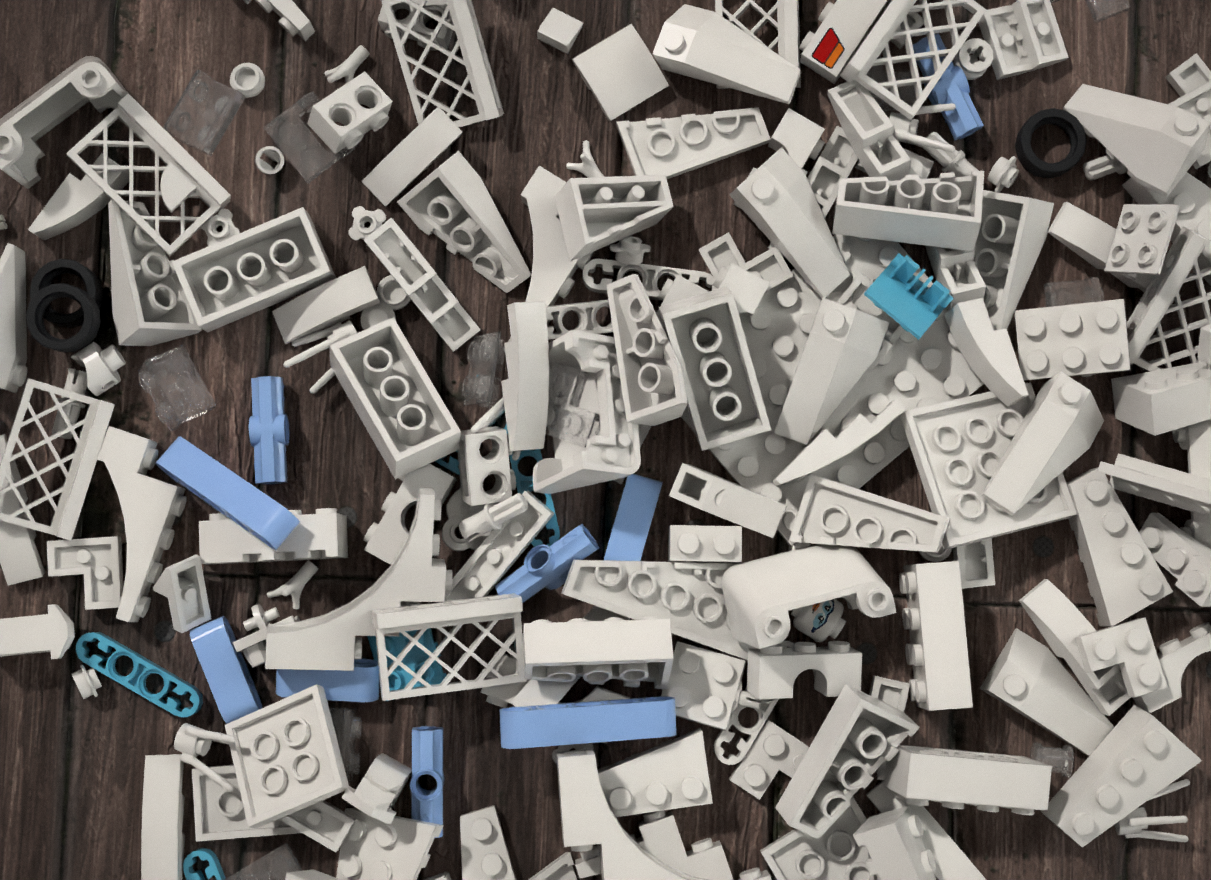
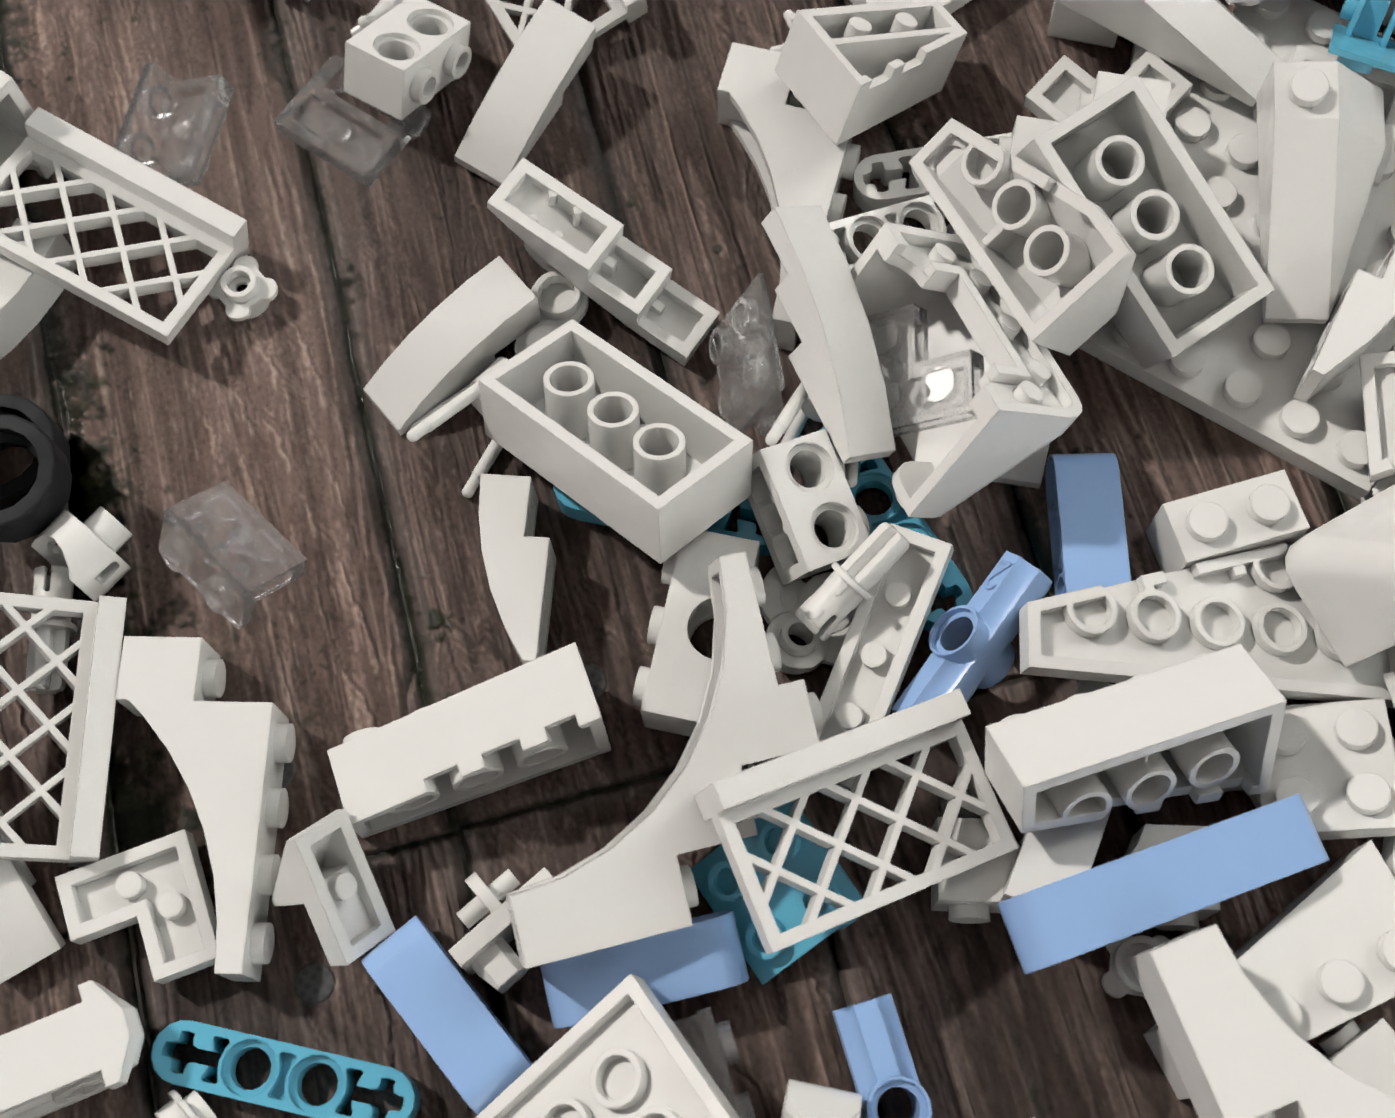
camera: 10 degrees left, 15 degrees down
(144, 285) = (136, 410): white wedge -> none
(175, 187) = (151, 229): white tile -> none
(227, 492) = (371, 678): light blue beam -> none
(247, 79) = (234, 64): white plate -> none
(253, 270) = (313, 322): white brick -> none
(269, 430) = (411, 572): light blue piece -> none
(274, 154) = (300, 158): white hinge -> none
(295, 584) = (533, 821): white bar -> none
(324, 448) = (516, 562): none -> white slope
(361, 216) = (475, 229): white plate -> none
(463, 215) = (644, 163): white wedge -> none
(630, 250) = (915, 129): white plate -> none
(727, 500) = (1235, 441): white slope -> none

